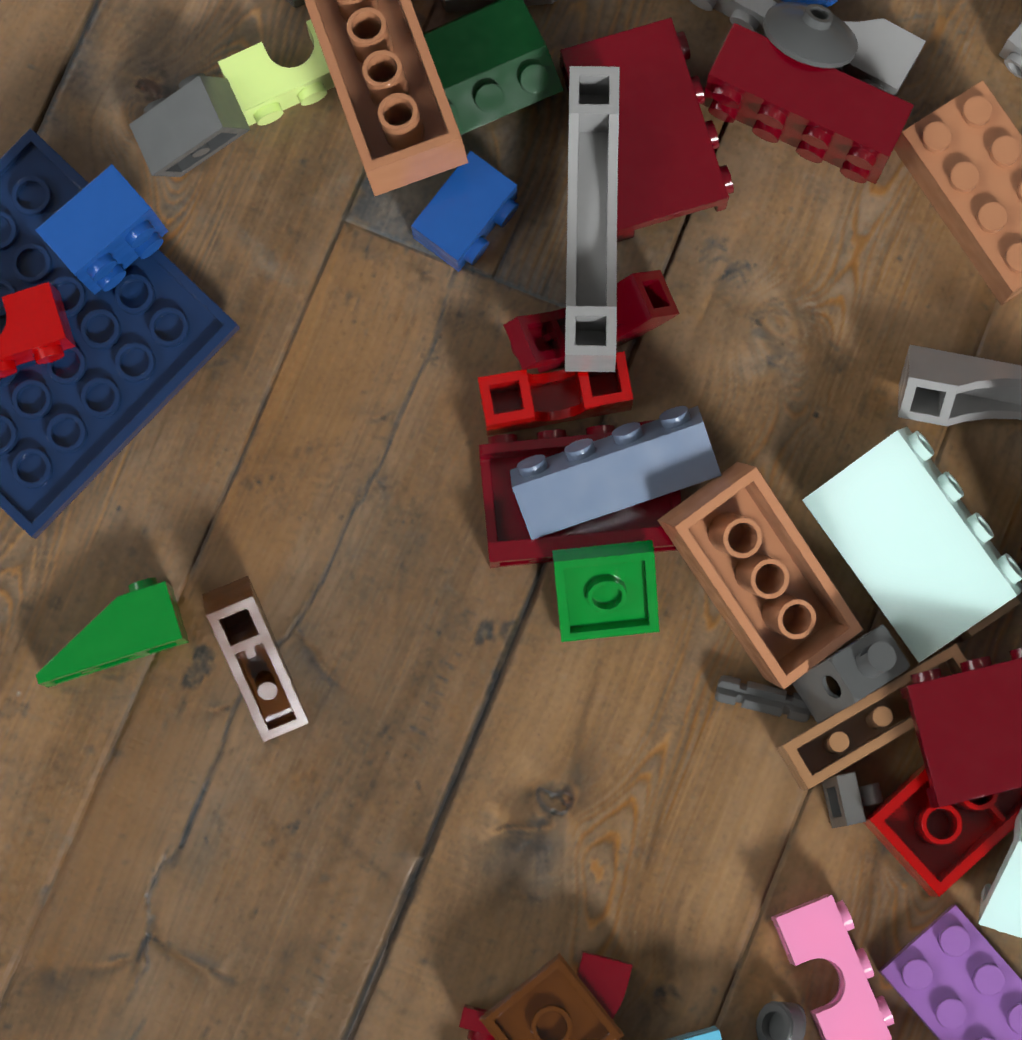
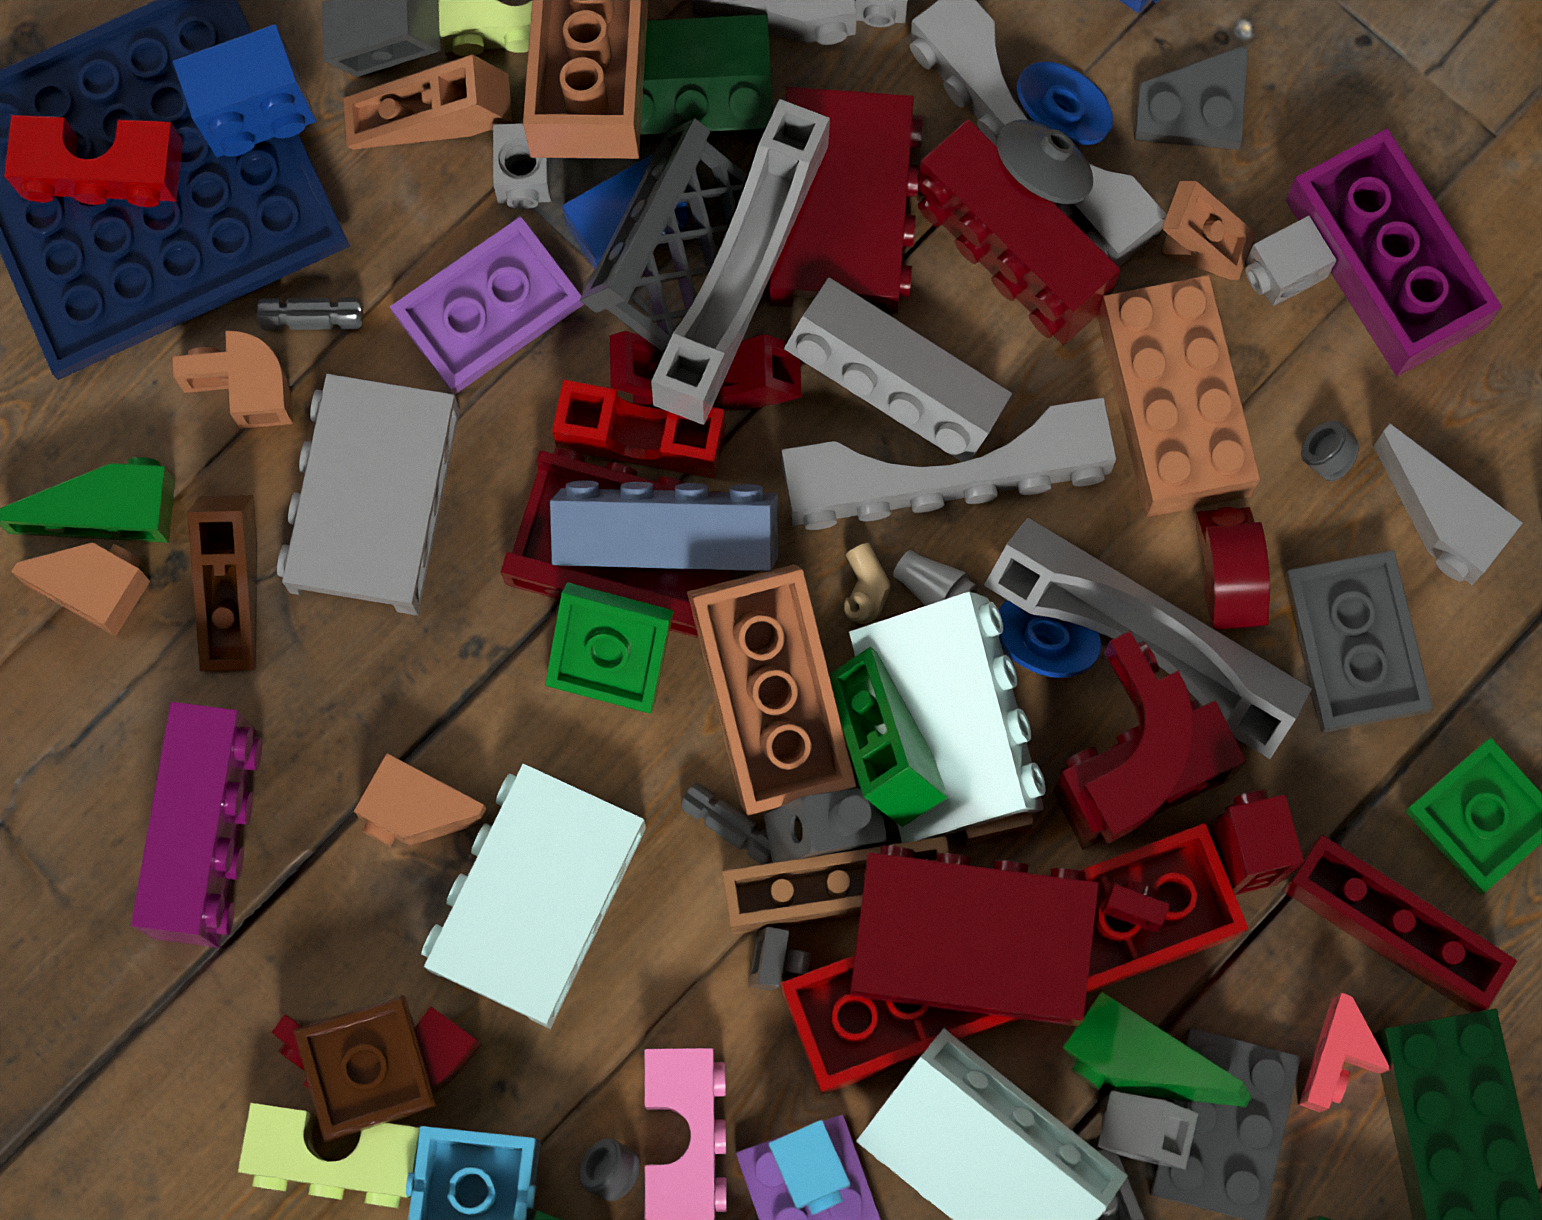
camera: 20 degrees right, 5 degrees down
(138, 704) = (88, 582): none -> nougat slope
(200, 468) = (251, 373): none -> nougat brick
(228, 399) = (310, 313): none -> dark grey axle
(257, 180) = (430, 105): none -> nougat slope
(322, 877) = (196, 826): none -> magenta brick
(345, 535) = (369, 492): none -> light grey panel
(348, 184) = (518, 191): none -> light grey brick
(378, 335) = (487, 305): none -> medium lavender plate
(494, 787) = (414, 806): none -> nougat slope
(497, 212) = (644, 223): none -> dark grey fence
(626, 823) = (534, 894): none -> light aqua panel
(738, 373) = (836, 482): none -> light grey arch
(754, 261) = (897, 371): none -> light grey brick
(800, 453) = (871, 588): none -> tan arm
(852, 429) = (930, 579): none -> light grey cone
(874, 582) = (884, 741): none -> green slope
(953, 962) = (810, 1168): none -> medium azure brick
(959, 43) = (1205, 233): none -> nougat slope
(970, 446) = (1047, 643): none -> blue dish

